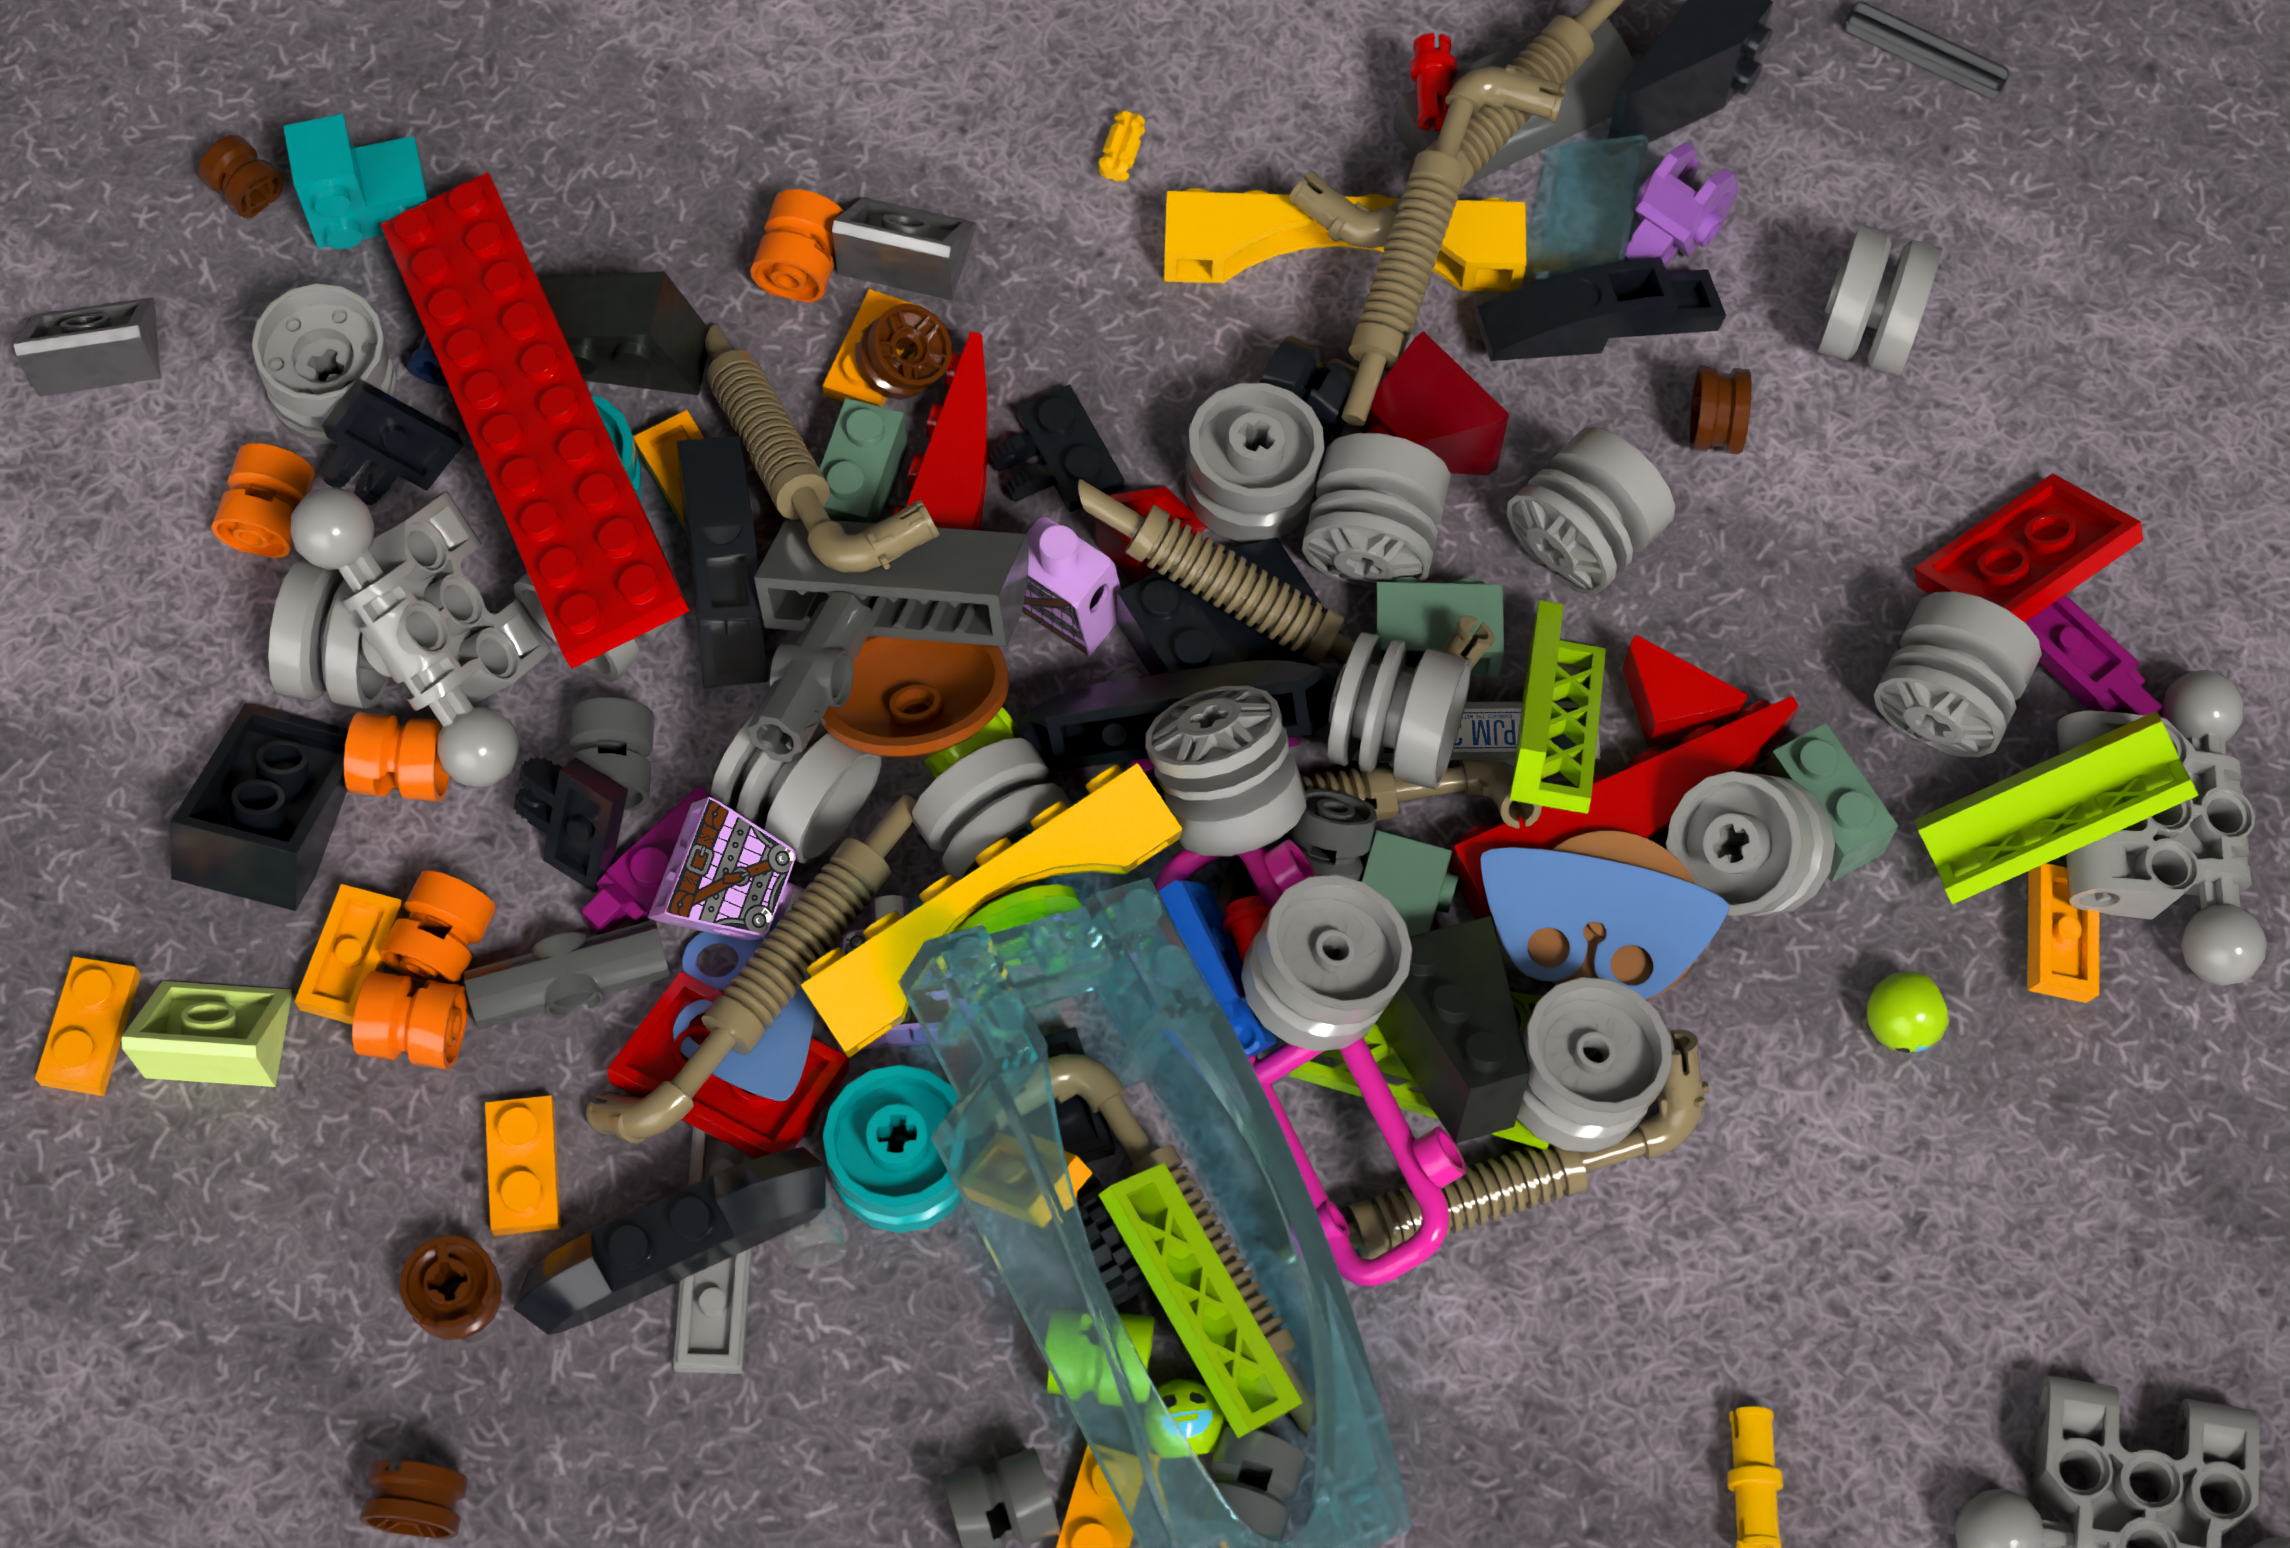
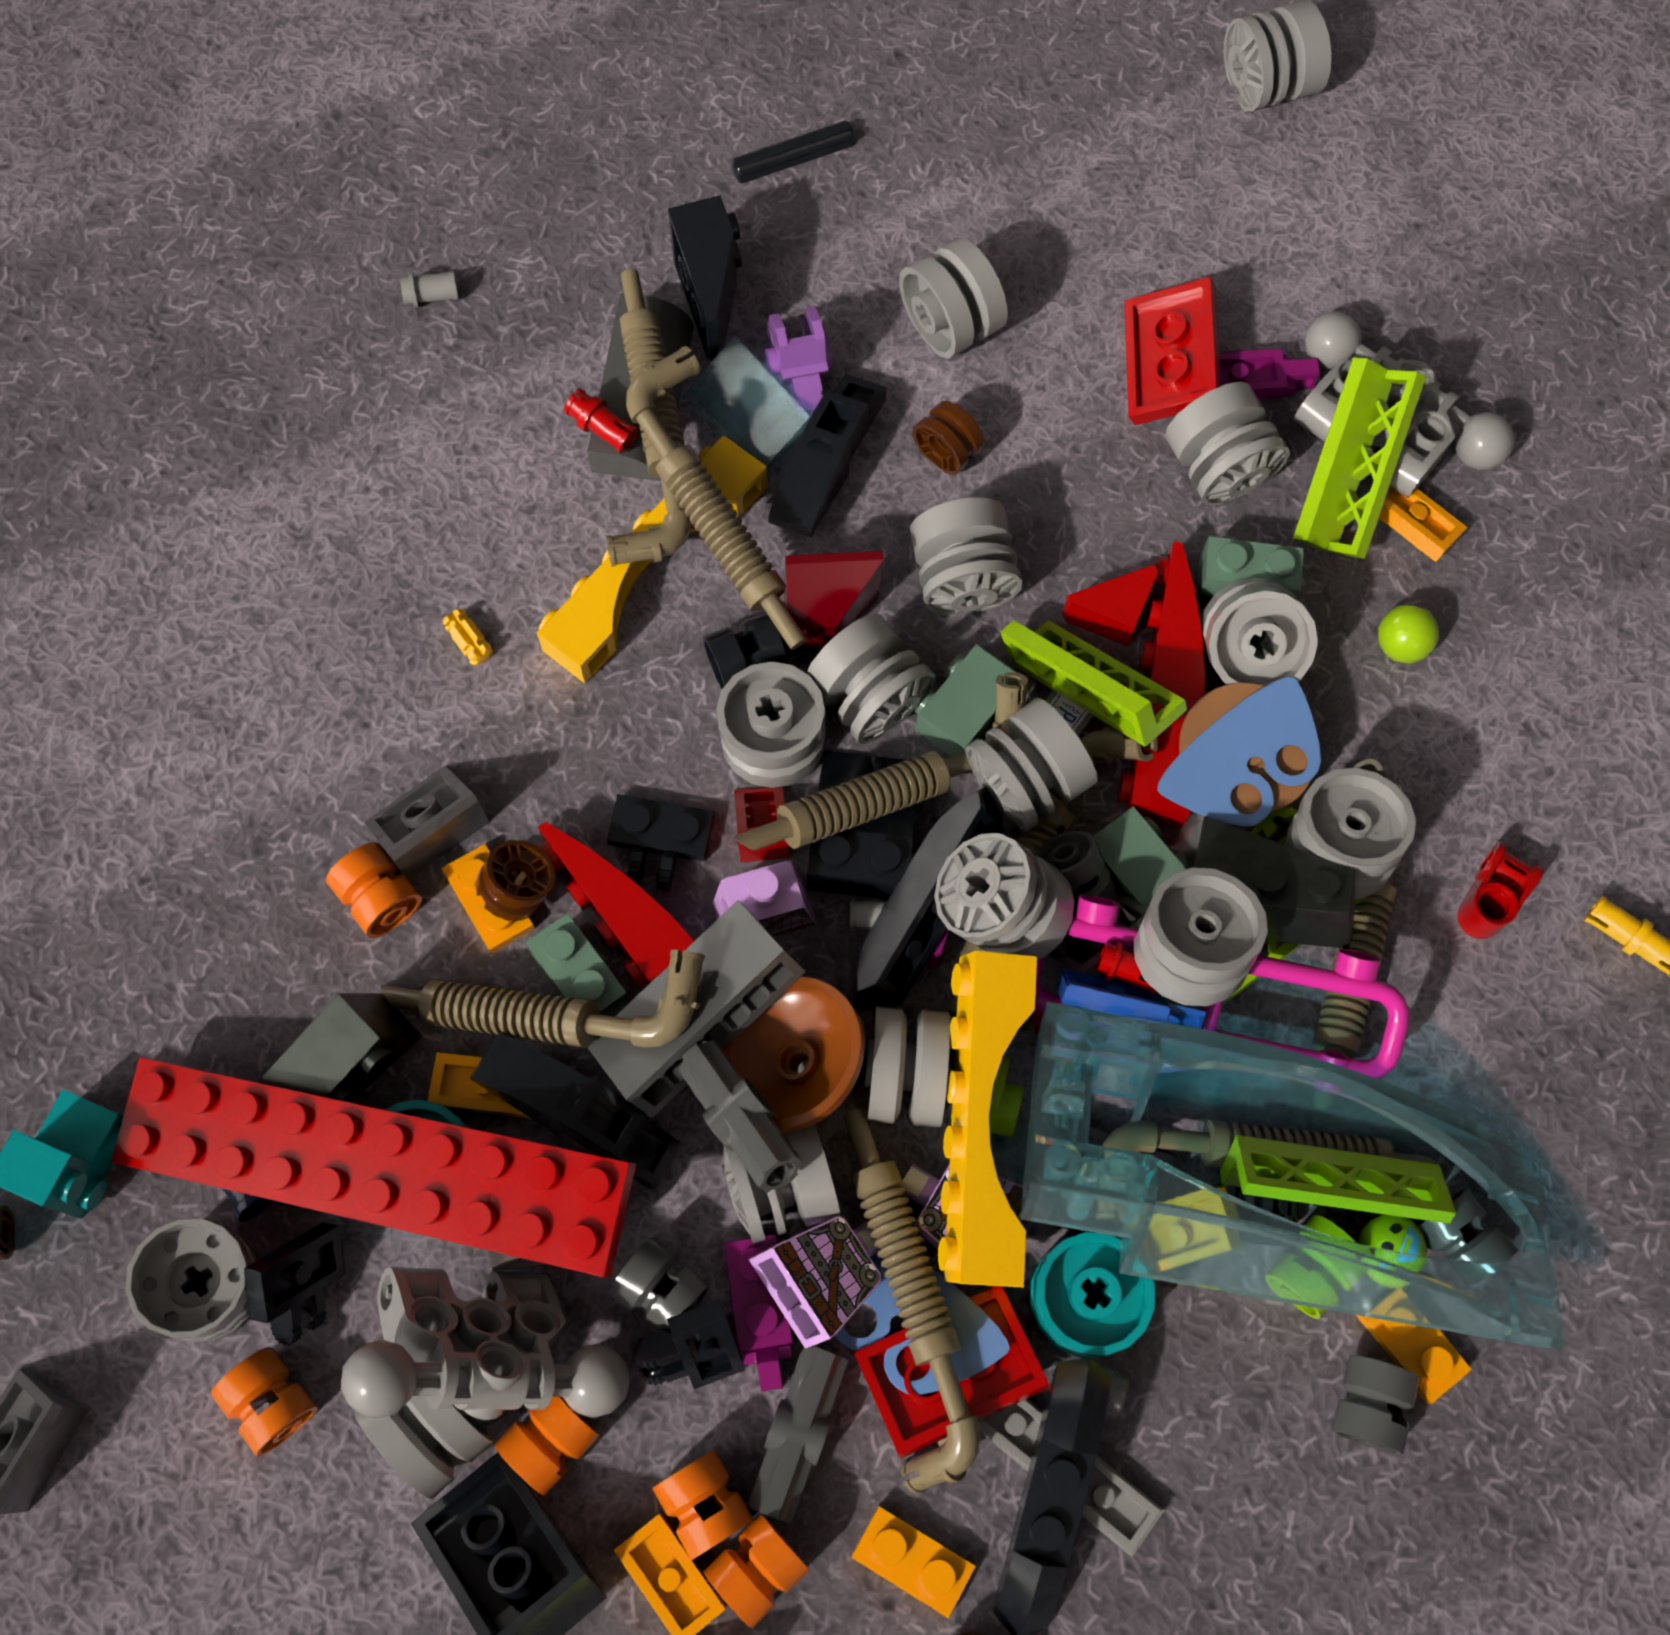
camera: 55 degrees left, 5 degrees up
(1693, 1291) = (1502, 886): none -> red piece

